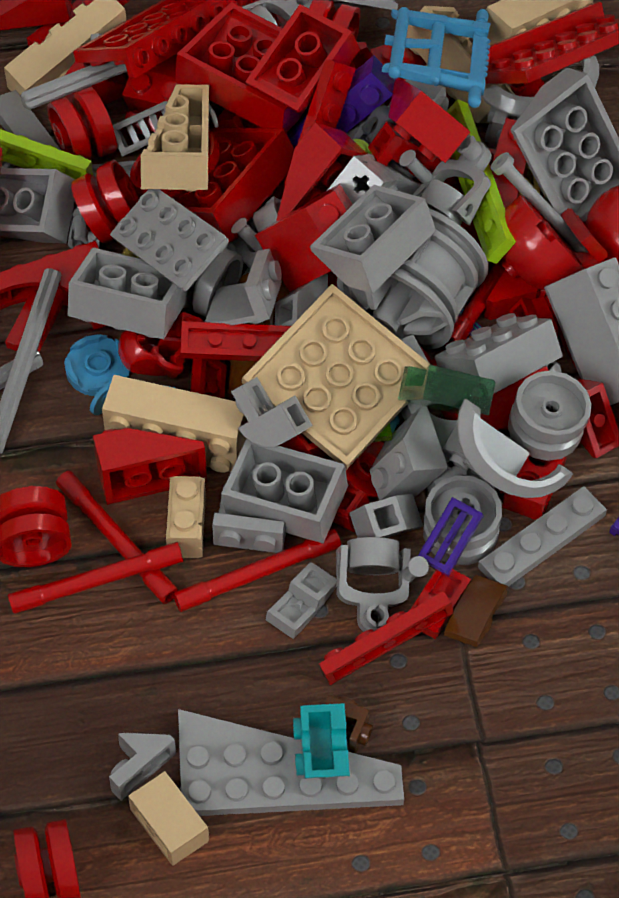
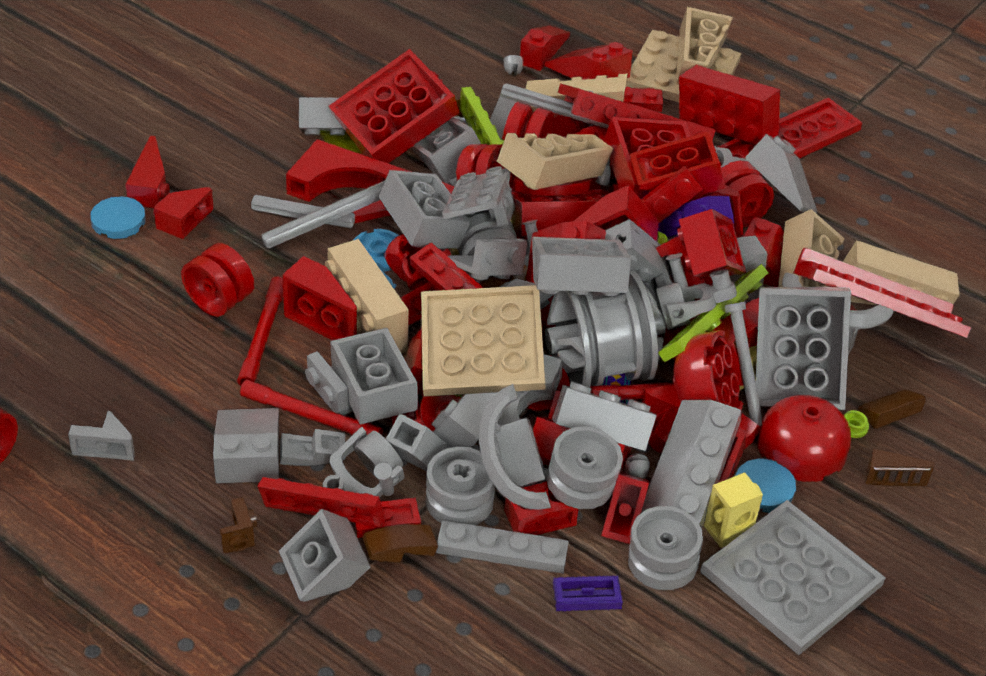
camera: 45 degrees right, 15 degrees down
(41, 594) = (255, 350): red piece -> none
(168, 818) = (70, 479): tan panel -> none
(186, 514) = (294, 350): tan brick -> none
(249, 646) = (246, 445): none -> light grey slope
(254, 771) = (161, 511): light grey wing -> none
(268, 424) = (406, 320): light grey brick -> none
(322, 741) = (203, 517): teal cylinder -> none
(432, 73) = (762, 242): dark azure piece -> none
(441, 681) = (324, 556): none -> light grey slope
(445, 389) = (531, 393): clear green panel -> none
(466, 510) = (429, 480): dark purple tile -> none
(584, 235) = (756, 404): red tile -> none

